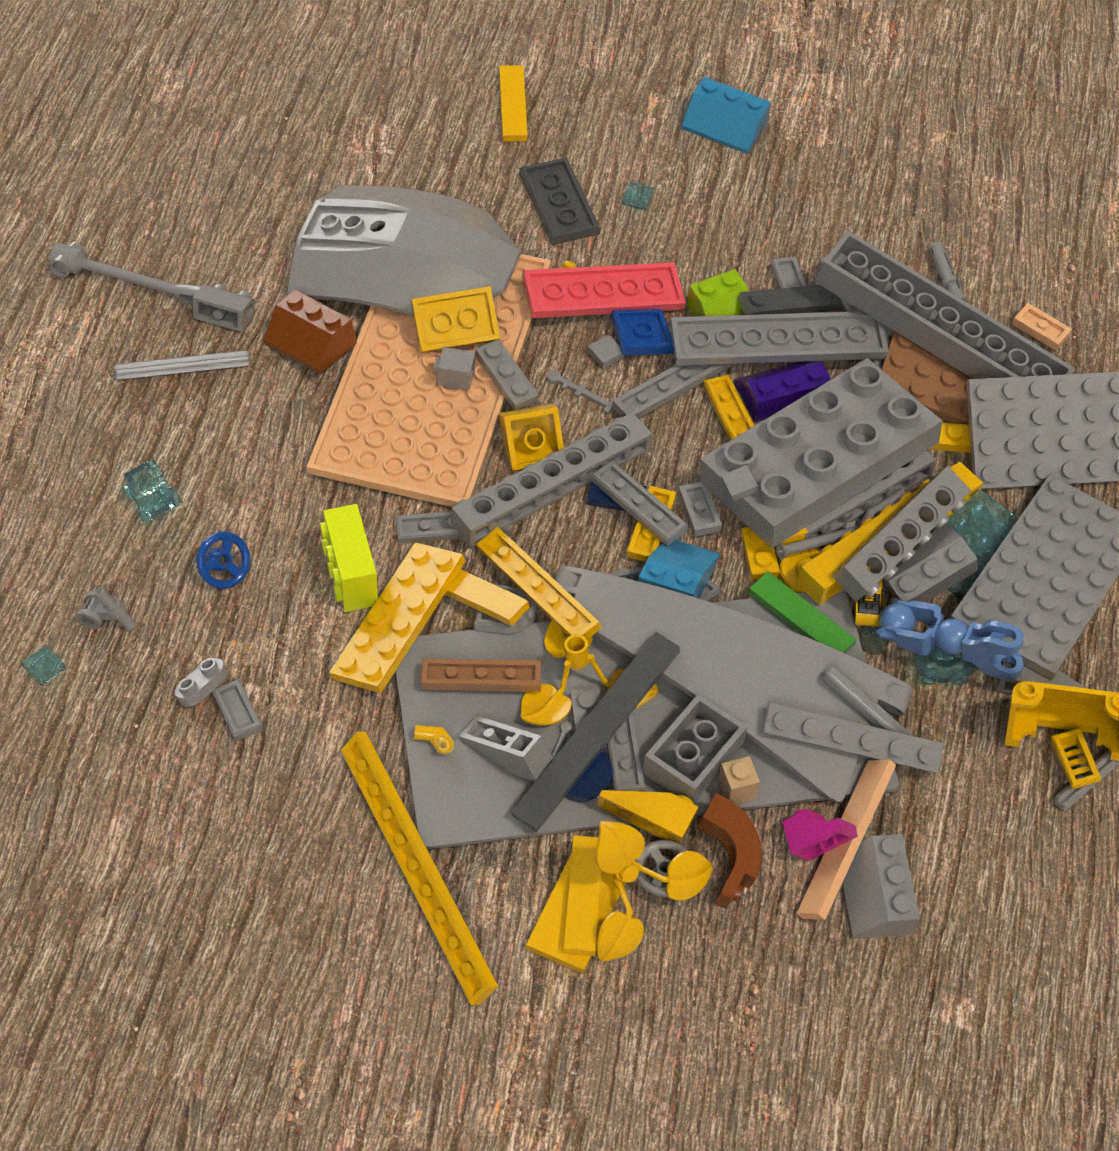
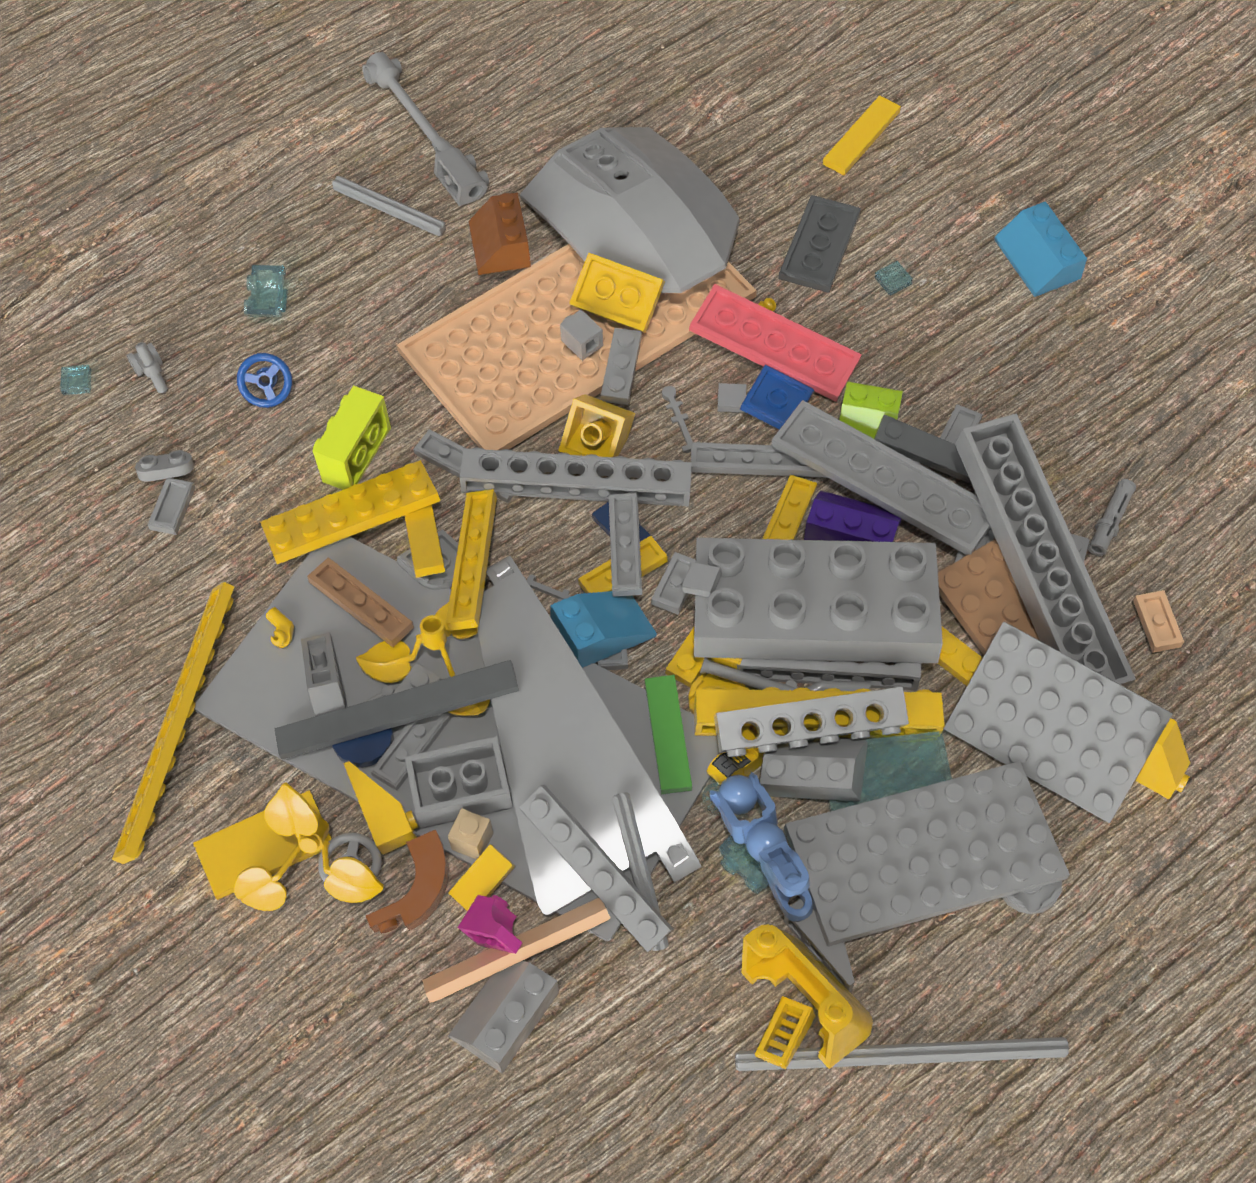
camera: 45 degrees right, 5 degrees up
(583, 898) = (259, 844): yellow tile -> none
(772, 809) = (482, 877): none -> yellow tile

